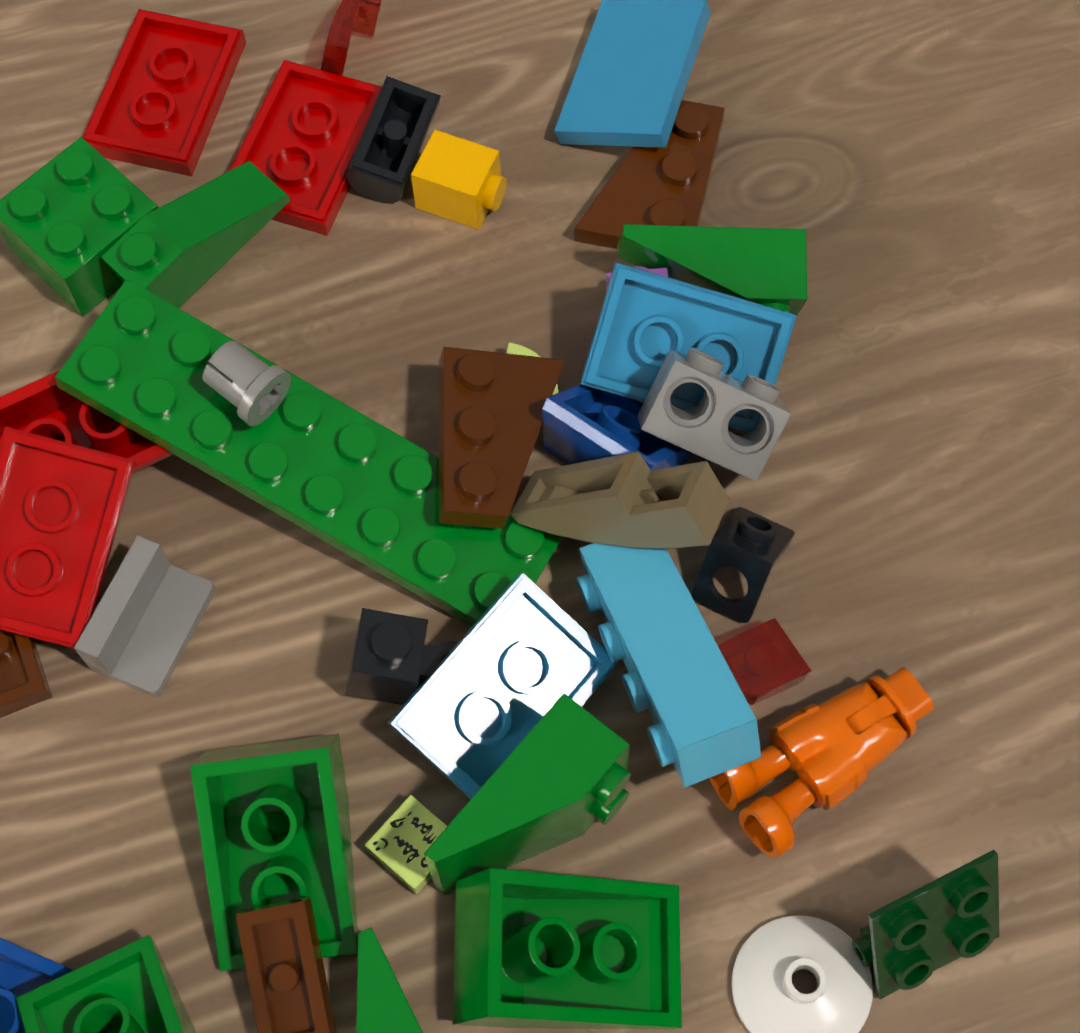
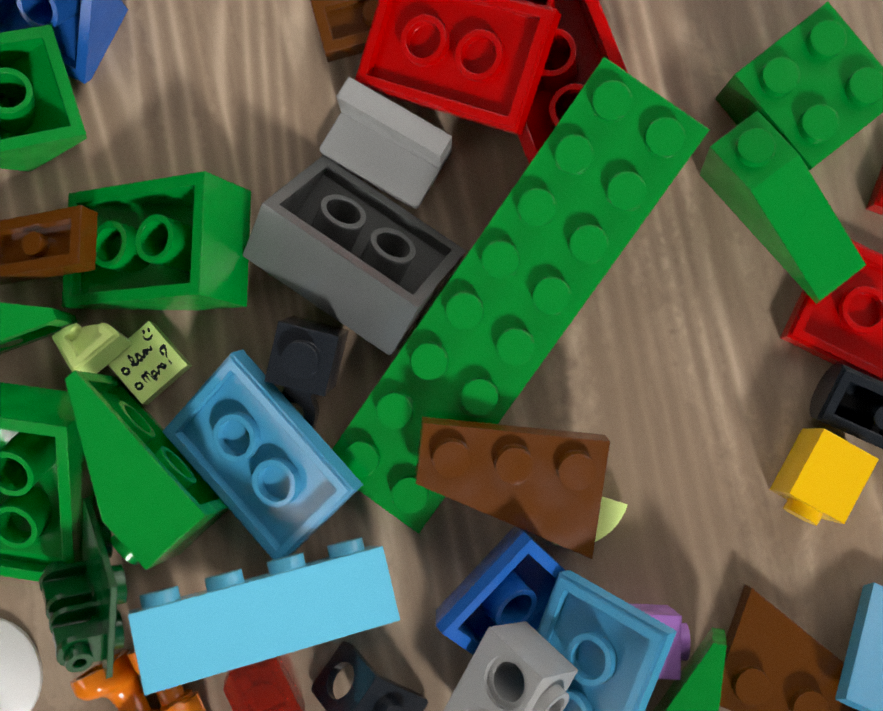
camera: 95 degrees right, 20 degrees up
(247, 382) = (572, 241): light grey bush -> none
(272, 631) = (352, 252): none -> dark grey slope
(400, 906) = (90, 346): none -> yellowish green tile
(625, 503) = (412, 599): dark tan slope -> none
(667, 826) = (84, 600): none -> dark green hinge

